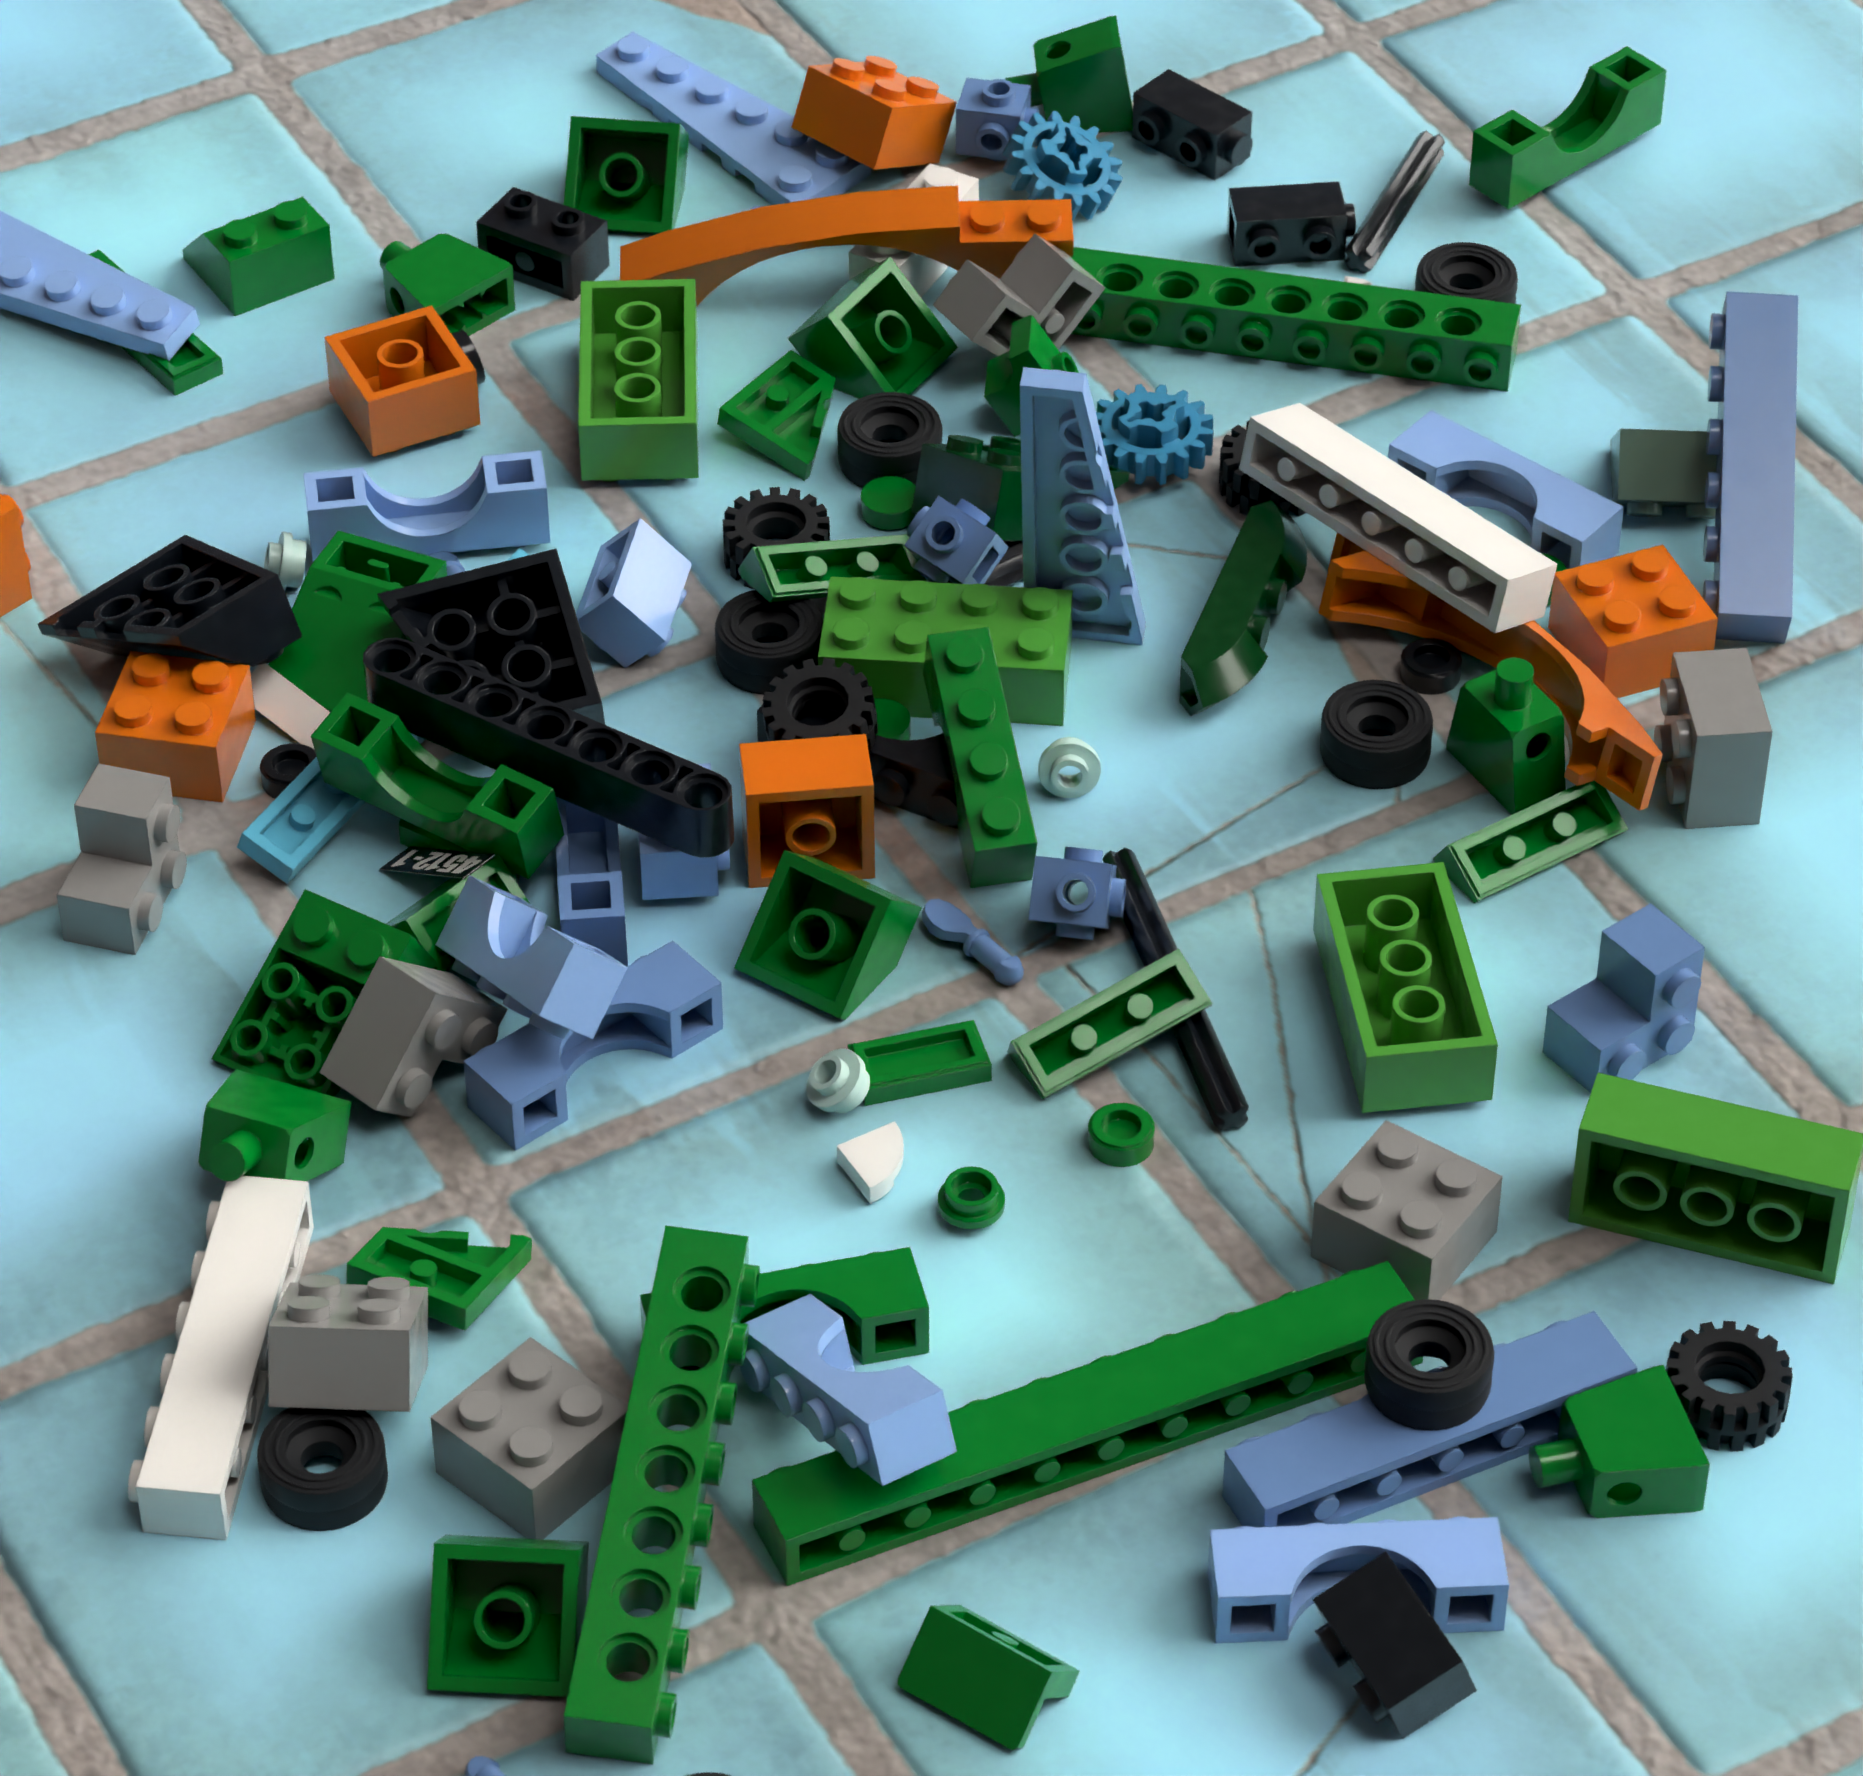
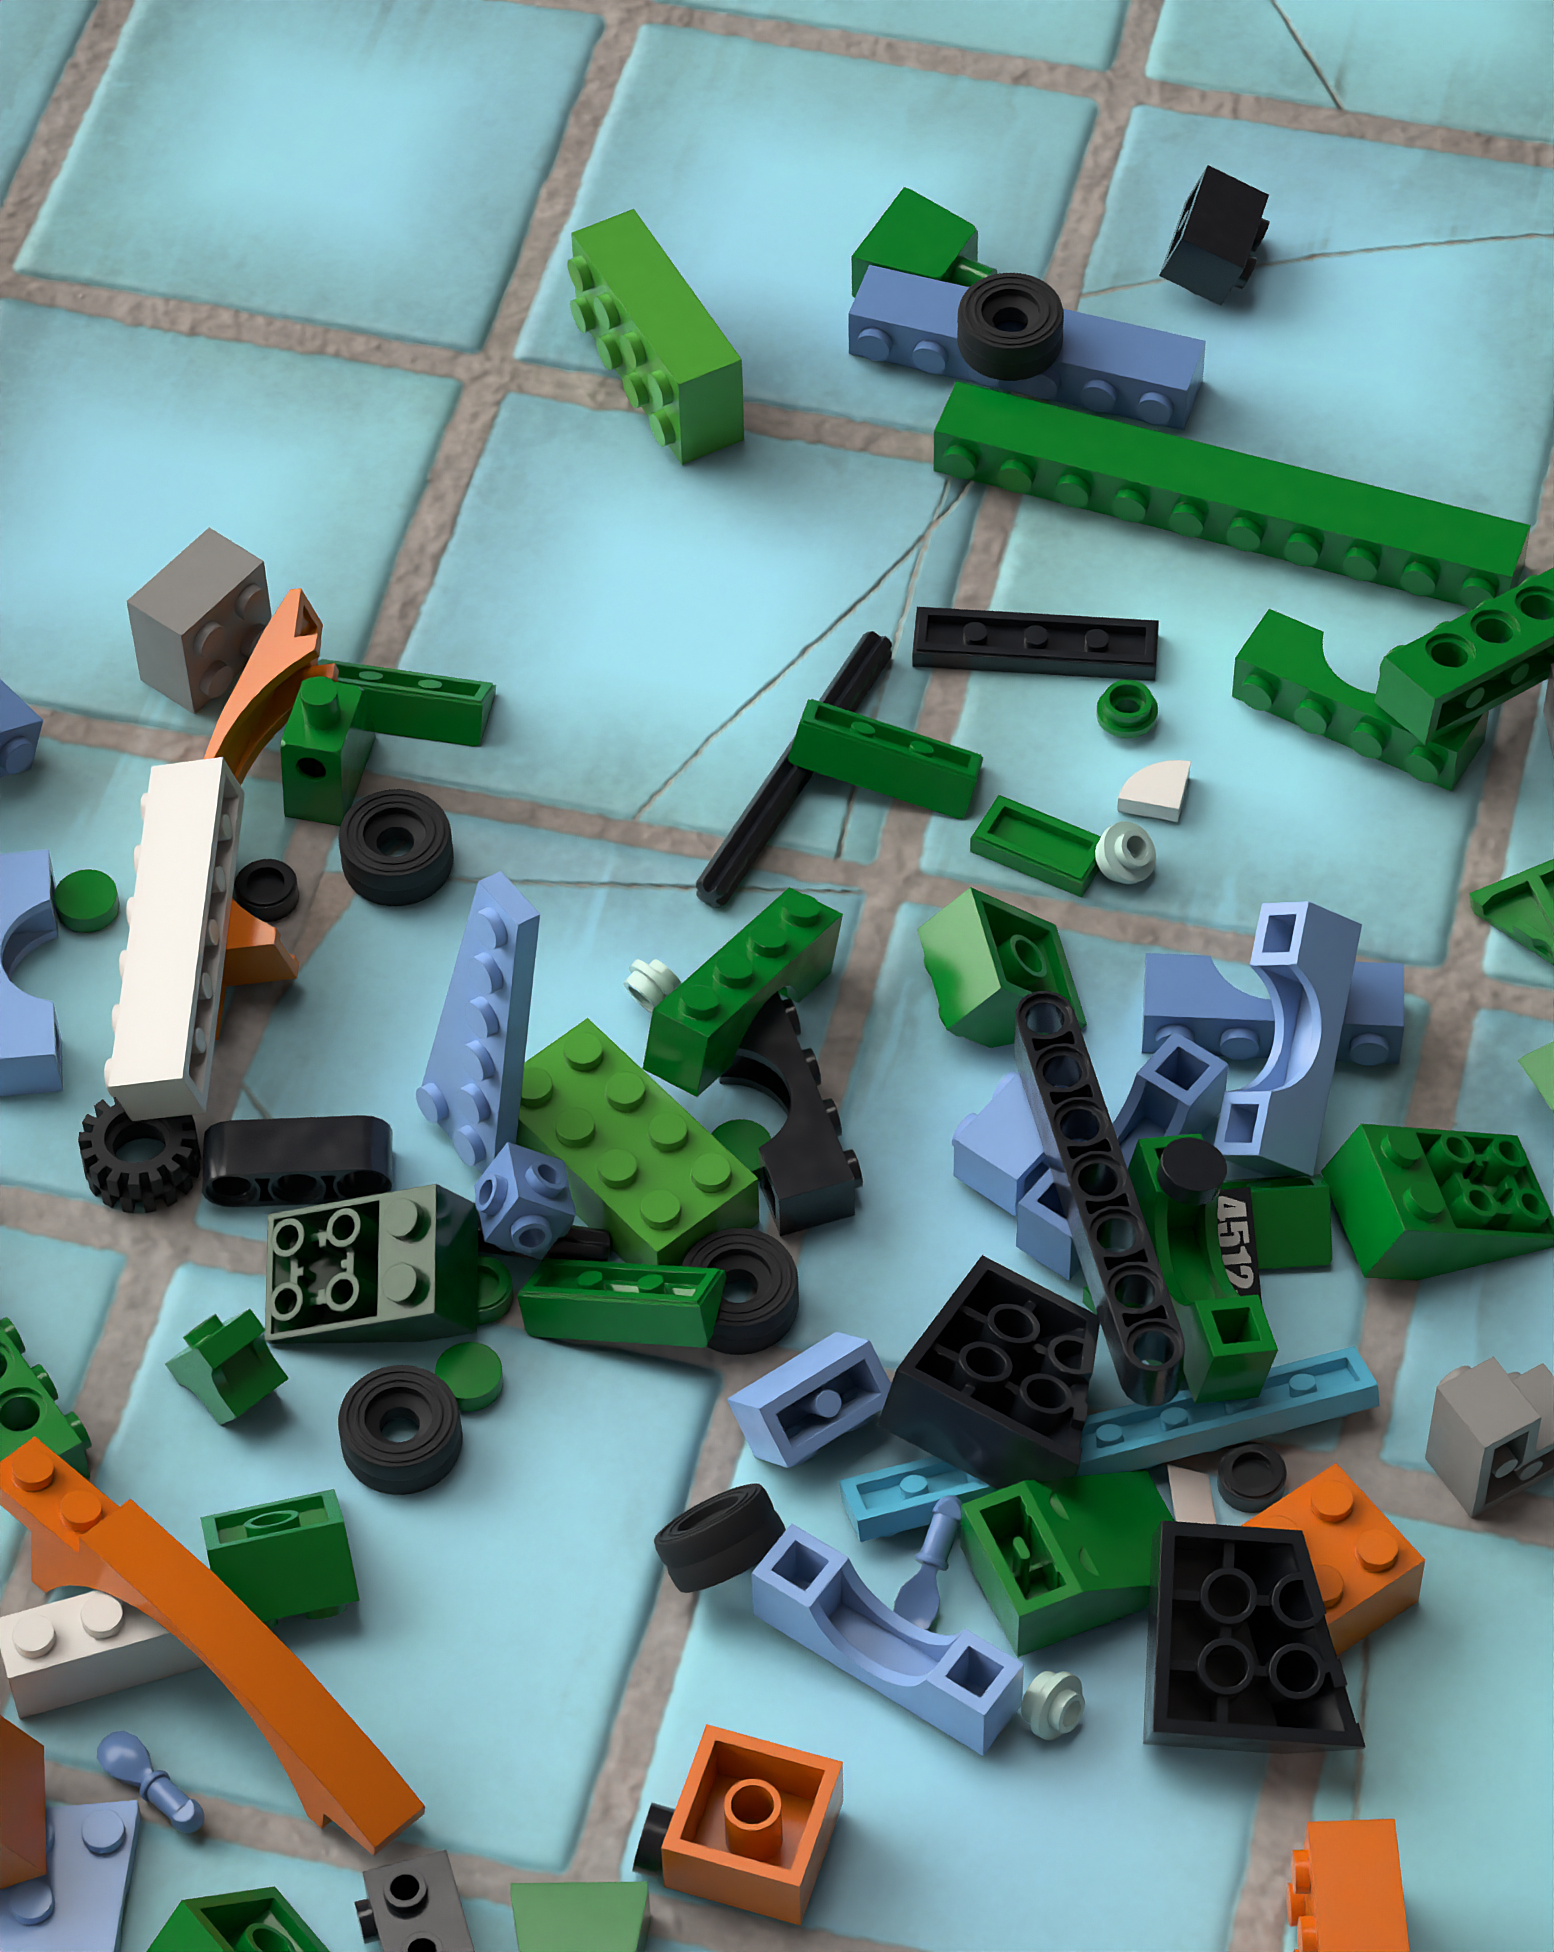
camera: 135 degrees left, 10 degrees up
(403, 1031) = (1417, 1078): light grey brick -> none
(487, 783) = (1191, 1171): none -> black tile
(596, 483) = (719, 1538): none -> black tyre
(638, 380) = (544, 1650): bright green brick -> none
(768, 518) = (606, 1364): black tyre -> none
(783, 412) = (443, 1541): green wing -> none
(807, 801) = (918, 1053): orange brick -> none
(820, 688) = (826, 1130): black tyre -> none
(875, 1419) = (1408, 508): light blue arch -> none
(952, 924) = (890, 934): medium blue piece -> none
(983, 1674) = (1460, 406): green panel -> none
(1037, 283) = (150, 1435): light grey brick -> none
(1052, 888) = (793, 853): medium blue brick -> none
(1112, 1211) = (1035, 643): none -> black tile
(1121, 1134) = (964, 691): green tile -> none
(1155, 433) = (190, 1256): dark azure gear -> none
(1175, 516) = (296, 1160): none -> black beam
(1235, 621) = (331, 1034): dark green brick -> none
(1272, 1574) = (1242, 329): light blue arch -> none
(1404, 987) = (663, 615): bright green brick -> none
(1407, 1207) = (867, 475): light grey brick -> none
(1630, 618) = (88, 781): orange brick -> none
(1636, 1004) = (537, 500): medium blue brick -> none
(1737, 1357) = (801, 232): black tyre -> none

